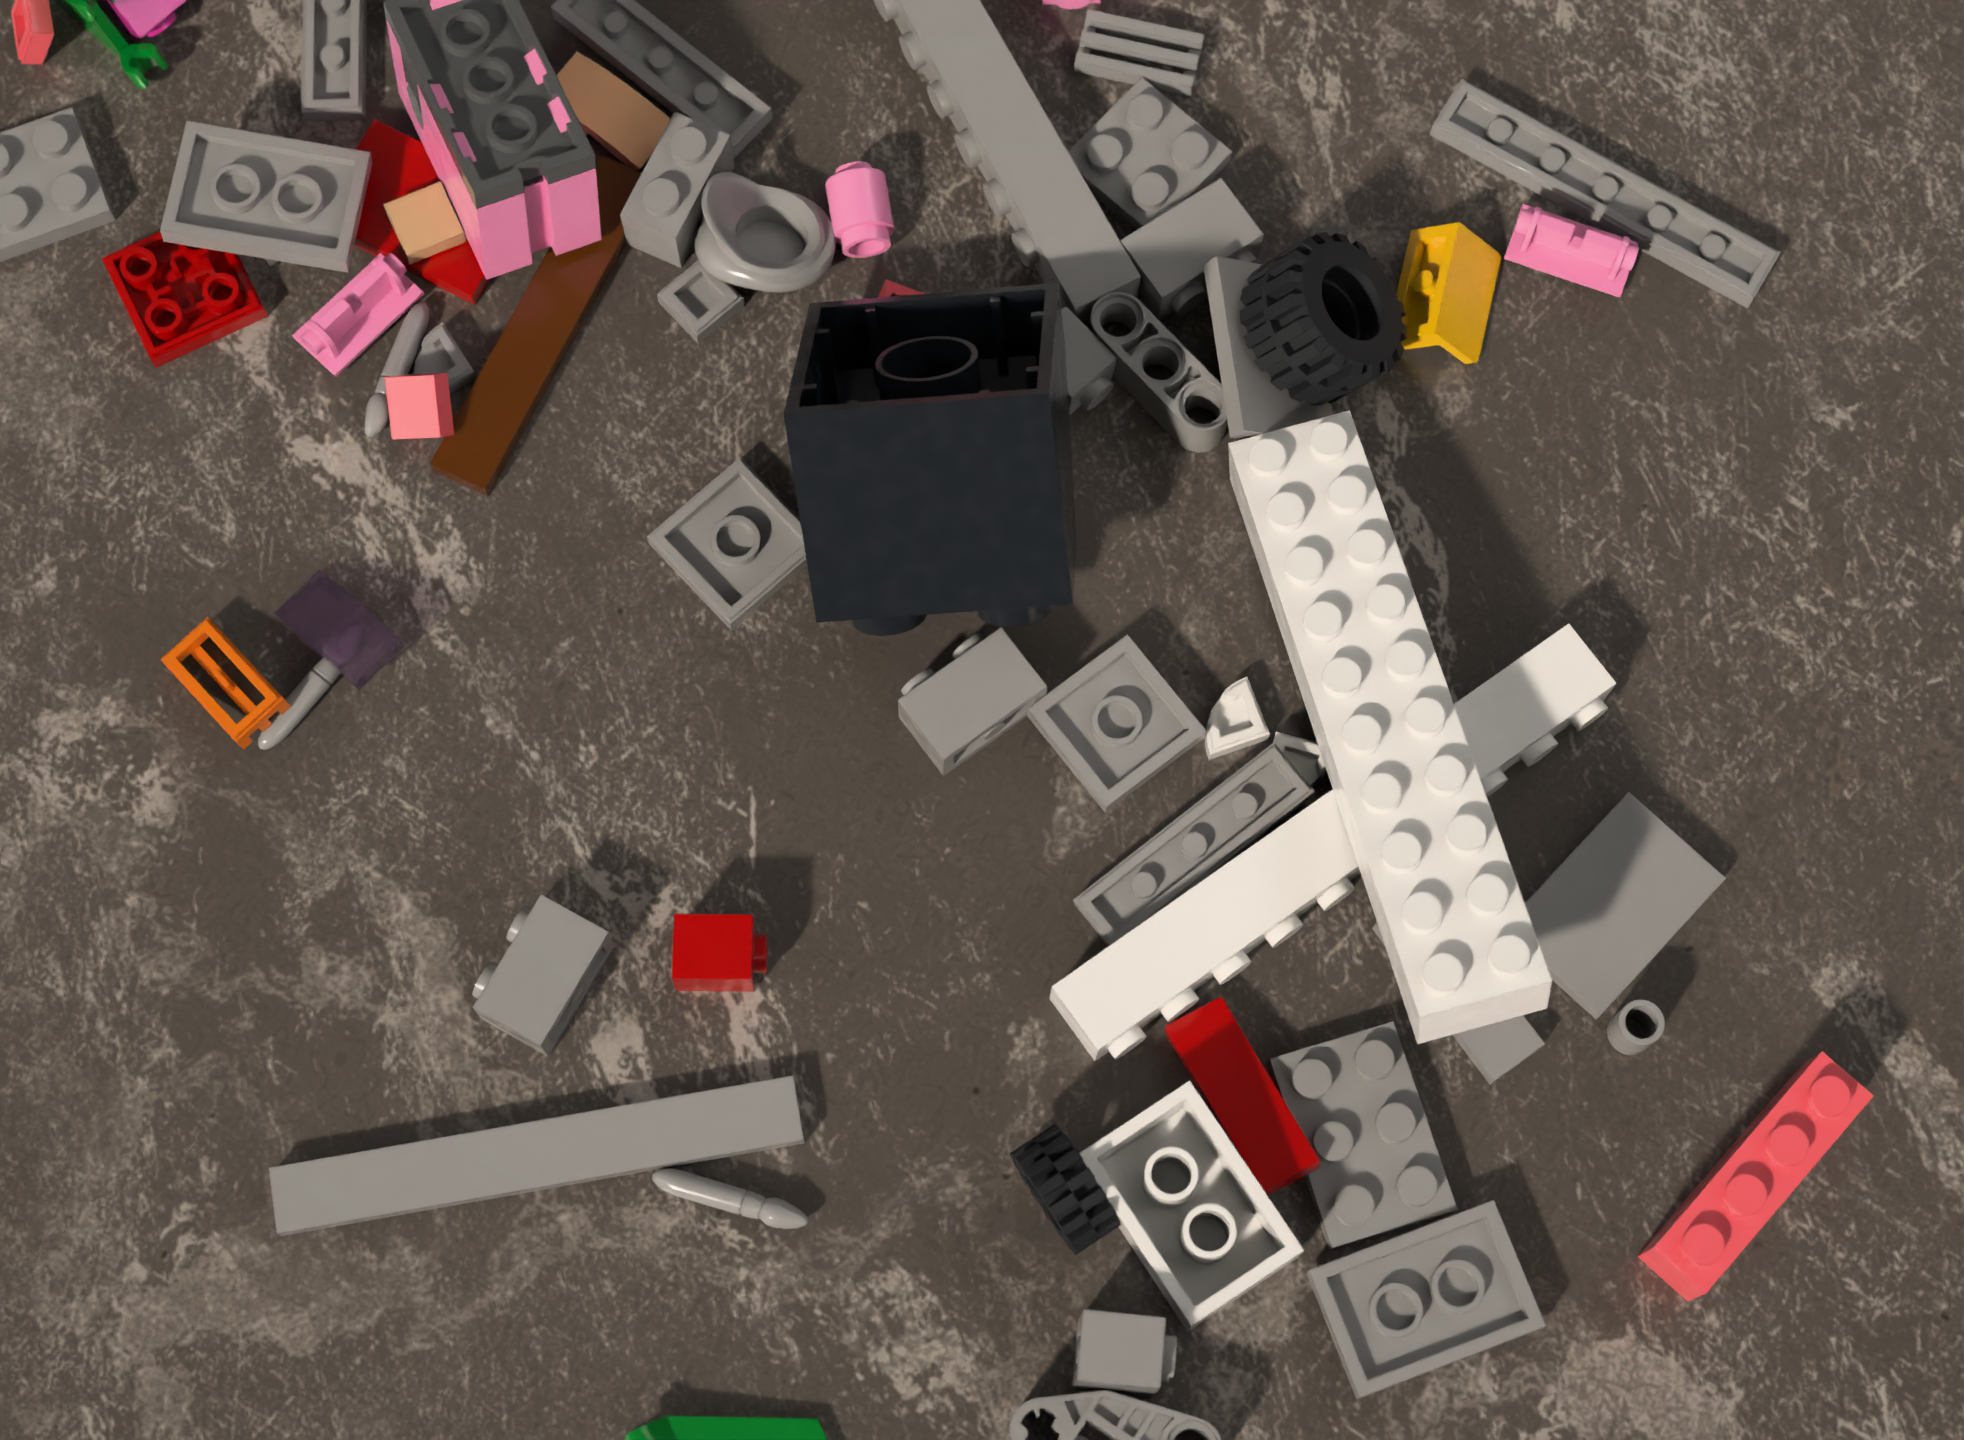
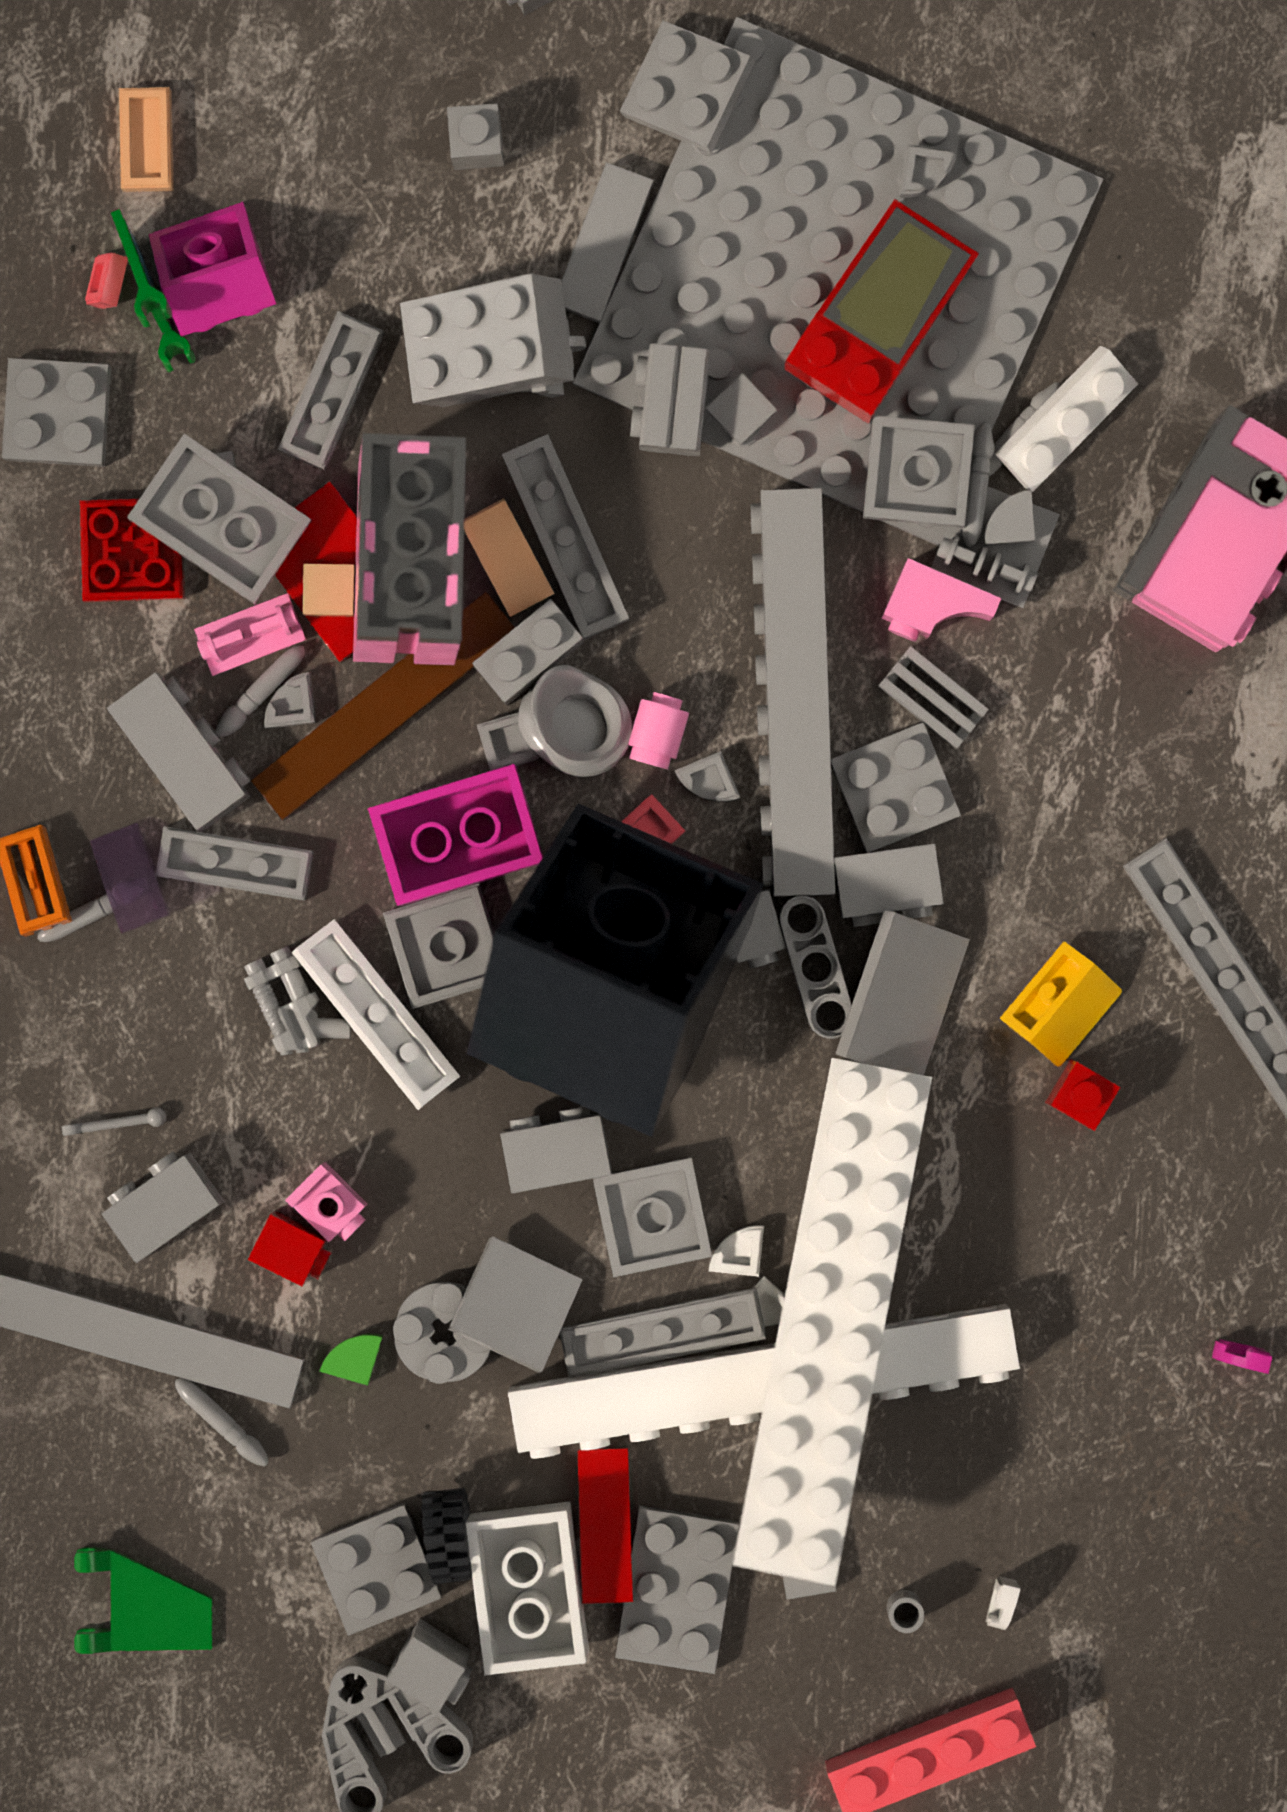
camera: 30 degrees right, 15 degrees up
(334, 464) = (181, 750): none -> light grey brick
(419, 406) = (261, 735): coral tile -> none
(452, 563) = (234, 863): none -> light grey tile
(488, 884) = (155, 1117): none -> light grey hinge
(603, 700) = (297, 1023): none -> light grey piece
(688, 406) = (456, 835): none -> dark pink brick
(692, 646) = (375, 1014): none -> white plate
(709, 887) = (322, 1184): none -> bright pink brick
(851, 1048) = (353, 1358): none -> bright green tile
(941, 240) = (709, 779): none -> light grey tile
(955, 1002) = (414, 1330): none -> light grey plate
(997, 1284) = (376, 1569): none -> light grey plate
(1010, 890) = (515, 1304): none -> light grey tile
(1323, 319) = (980, 1004): black tyre -> none
(1425, 1299) = (661, 1723): light grey plate -> none
(1520, 370) = (1082, 1094): none -> red brick
(1571, 250) = (1176, 1014): bright pink hinge -> none
(1617, 903) = (938, 1515): light grey tile -> none
(1740, 966) = (1002, 1603): none -> white tile
(1863, 566) = (1242, 1355): none -> dark pink tile

